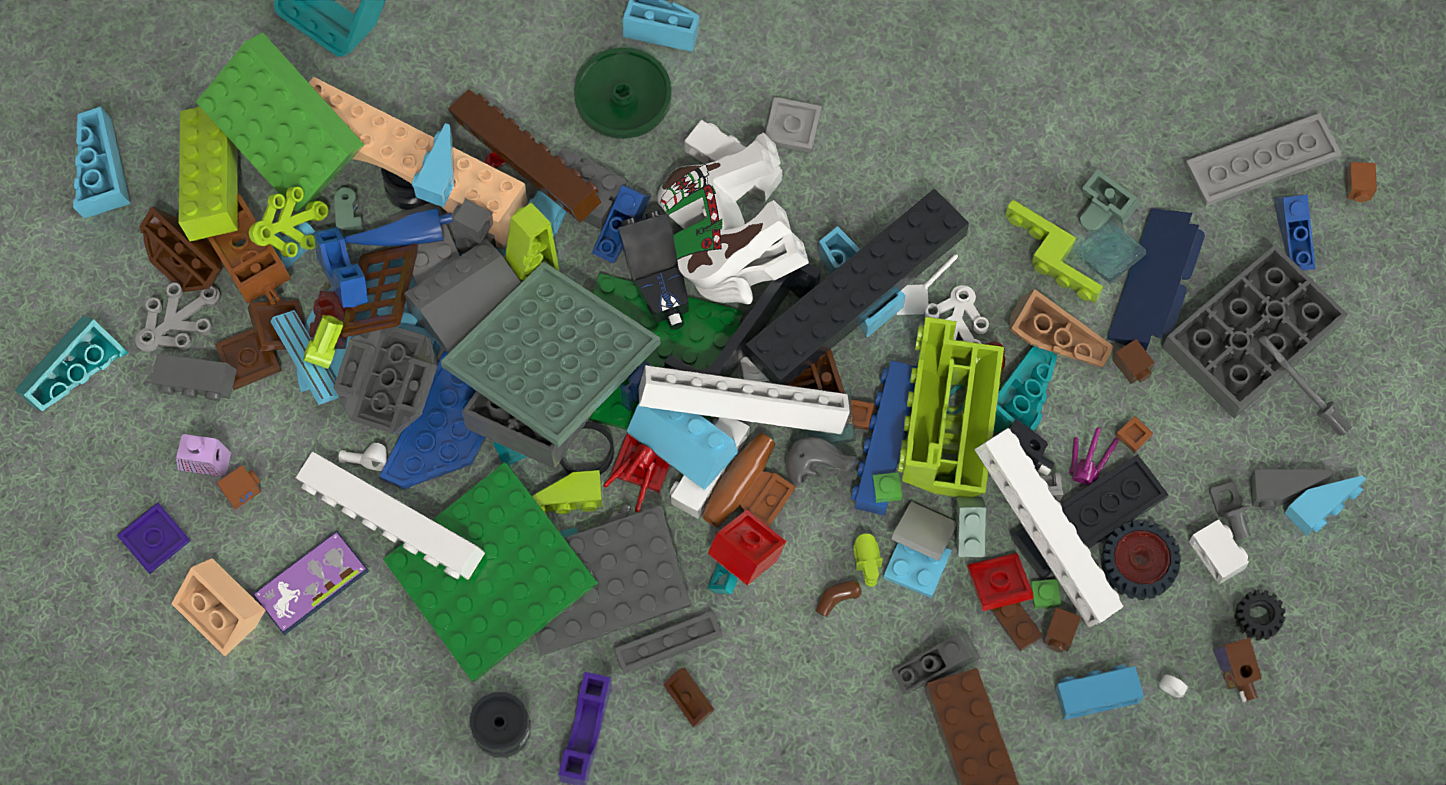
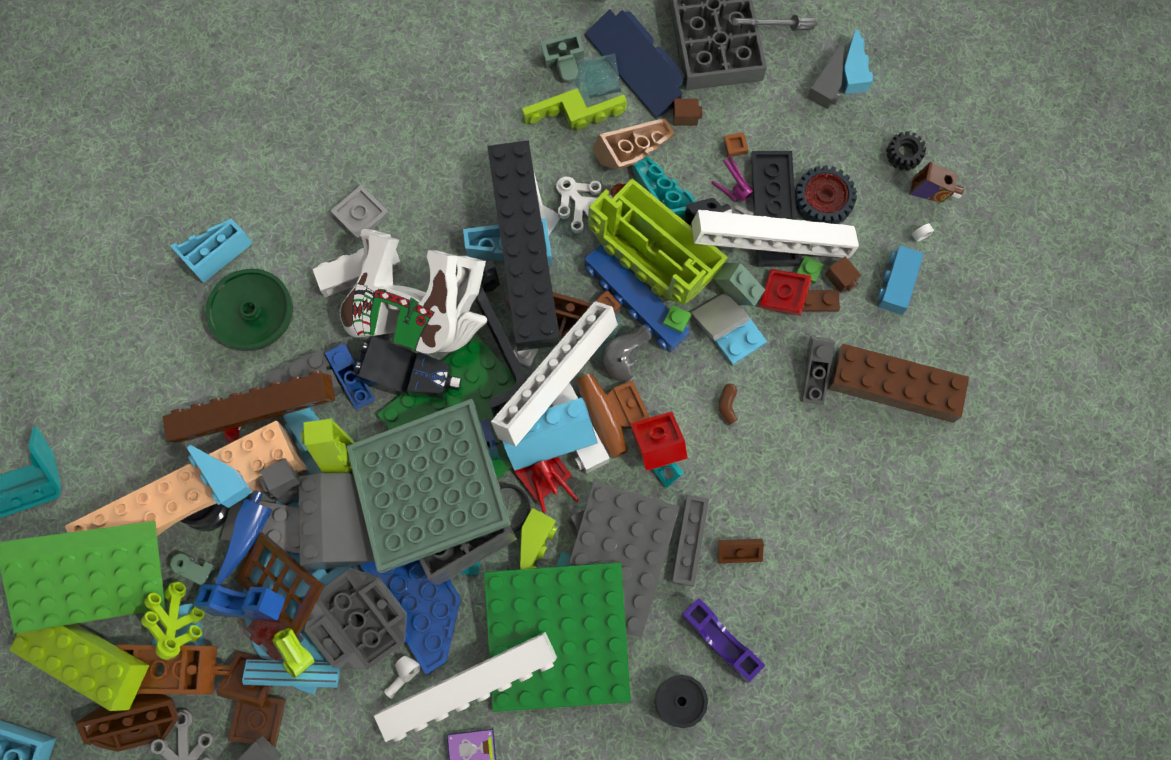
camera: 60 degrees left, 5 degrees up
(867, 558) = (715, 366): lime arm -> none
(1219, 551) = (849, 146): white brick -> none
(1233, 511) = (826, 121): dark grey bracket -> none

